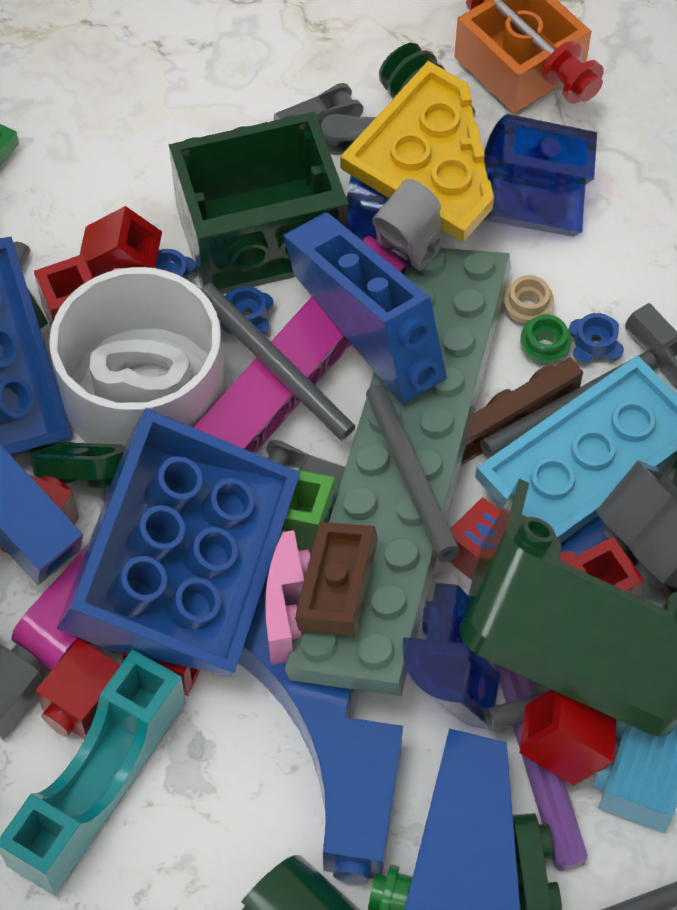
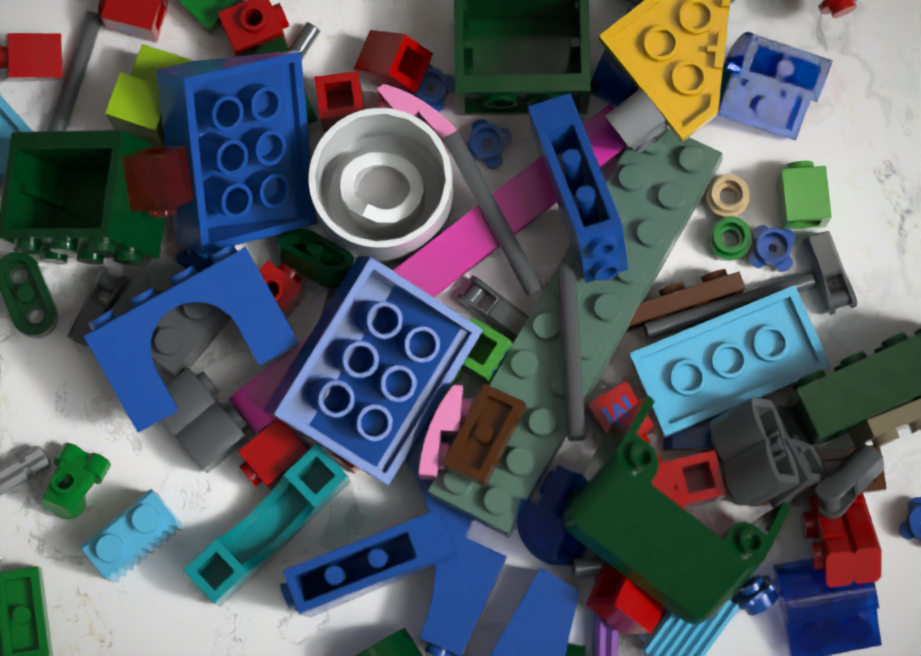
camera: 20 degrees right, 20 degrees up
(232, 776) = (368, 564): none -> blue slope
(612, 277) = (803, 196): none -> bright green brick

